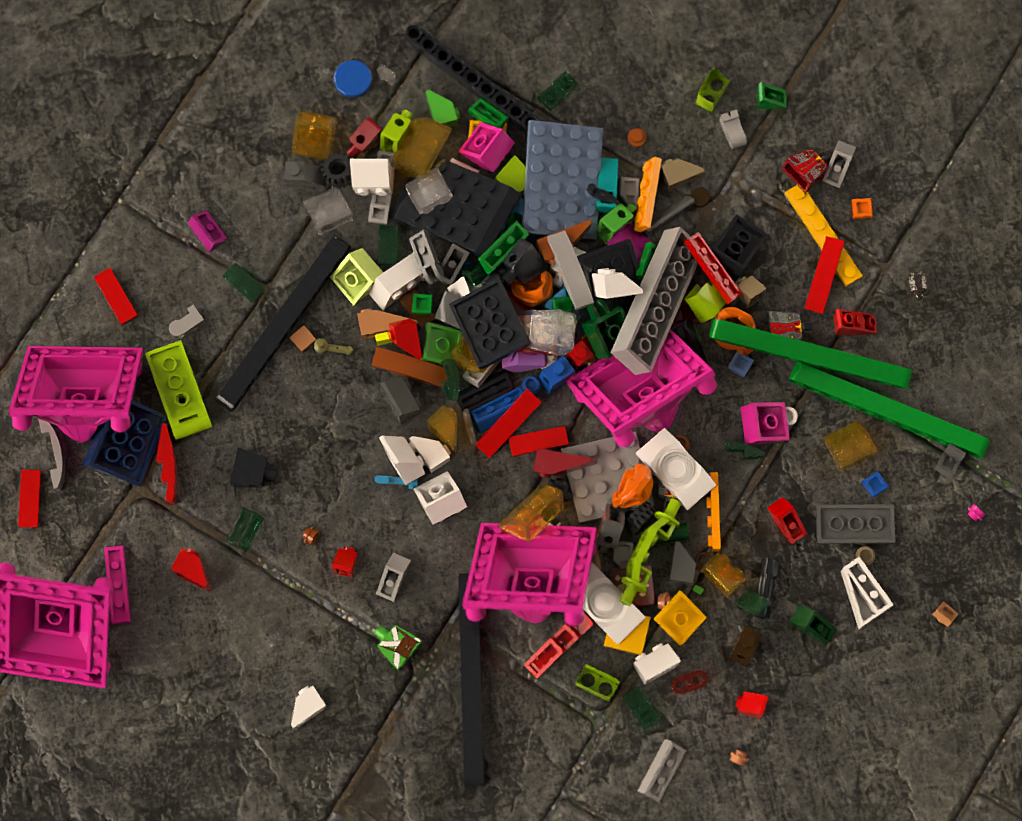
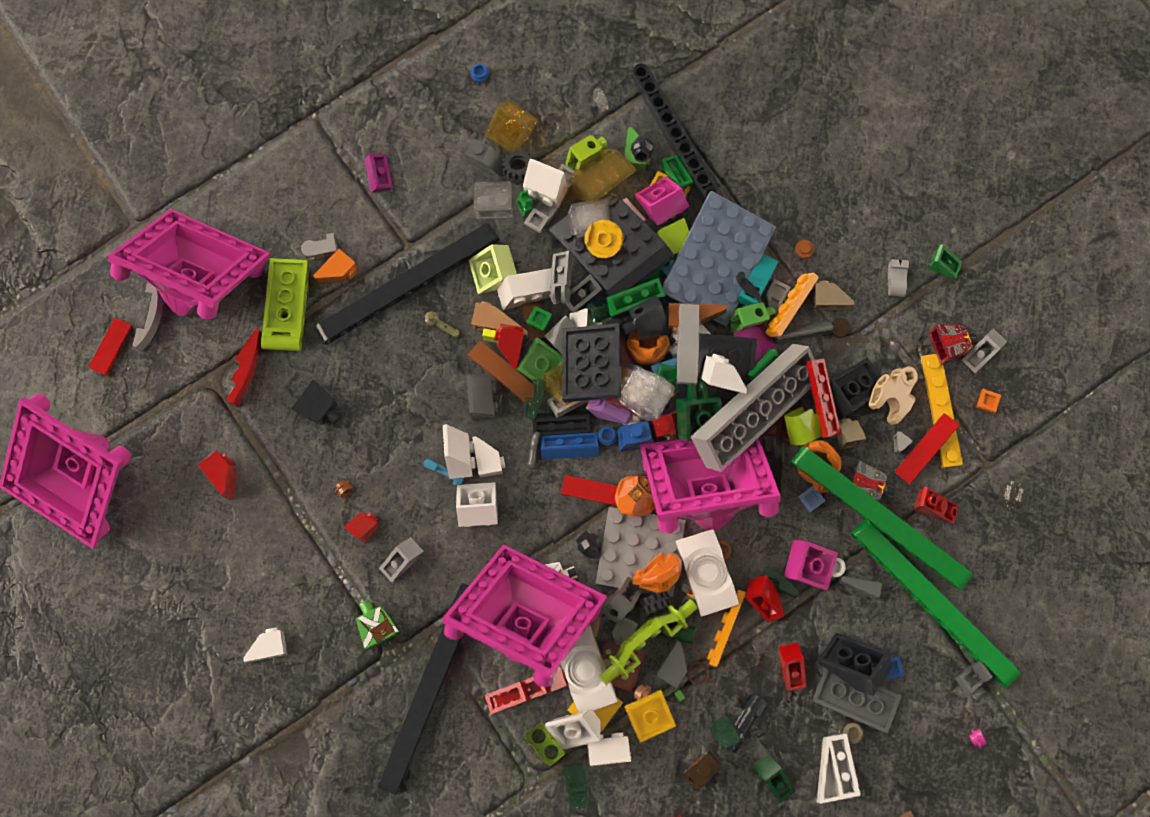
camera: 25 degrees right, 0 degrees up
(115, 296) = (270, 198): red tile -> none
(117, 573) = (151, 458): dark pink tile -> none
(129, 452) = (220, 339): dark blue slope -> none
(211, 337) = (337, 269): none -> orange slope
(243, 282) = (388, 232): clear green slope -> none
(245, 529) = (288, 457): clear green slope -> none
(260, 95) = (479, 72): none -> blue plate
(302, 339) = (418, 305): medium nougat tile -> none
(352, 79) = (568, 91): blue tile -> none
(360, 203) = (524, 203): none -> green plate
(366, 131) = (554, 147): dark red torso -> none
(388, 245) = (533, 252): clear green slope -> none
(445, 427) = (510, 440): clear yellow slope -> none
(448, 106) = (642, 149): none -> black rock
(452, 205) = (603, 238): none -> yellow tile
(508, 423) = (569, 462): red tile -> none
(534, 513) = (555, 557): clear yellow slope -> none
(558, 91) = (750, 177): clear green slope -> none
(559, 463) = (598, 519): dark red slope -> none
(582, 428) = (634, 496): none -> orange helmet
(619, 656) = (575, 729): none -> white slope
(691, 686) = (631, 786): clear red beam -> none
(713, 74) = (900, 220): lime piece -> none
(723, 574) = (709, 692): clear yellow slope -> none
(737, 470) = (765, 598): none -> red slope
(775, 234) = (896, 391): none -> tan piece
(799, 279) = (901, 441): none -> light grey slope
(820, 422) = (869, 588): none -> dark grey slope
(842, 492) = (856, 663): none -> black slope
(850, 445) = (883, 620): clear yellow slope -> none

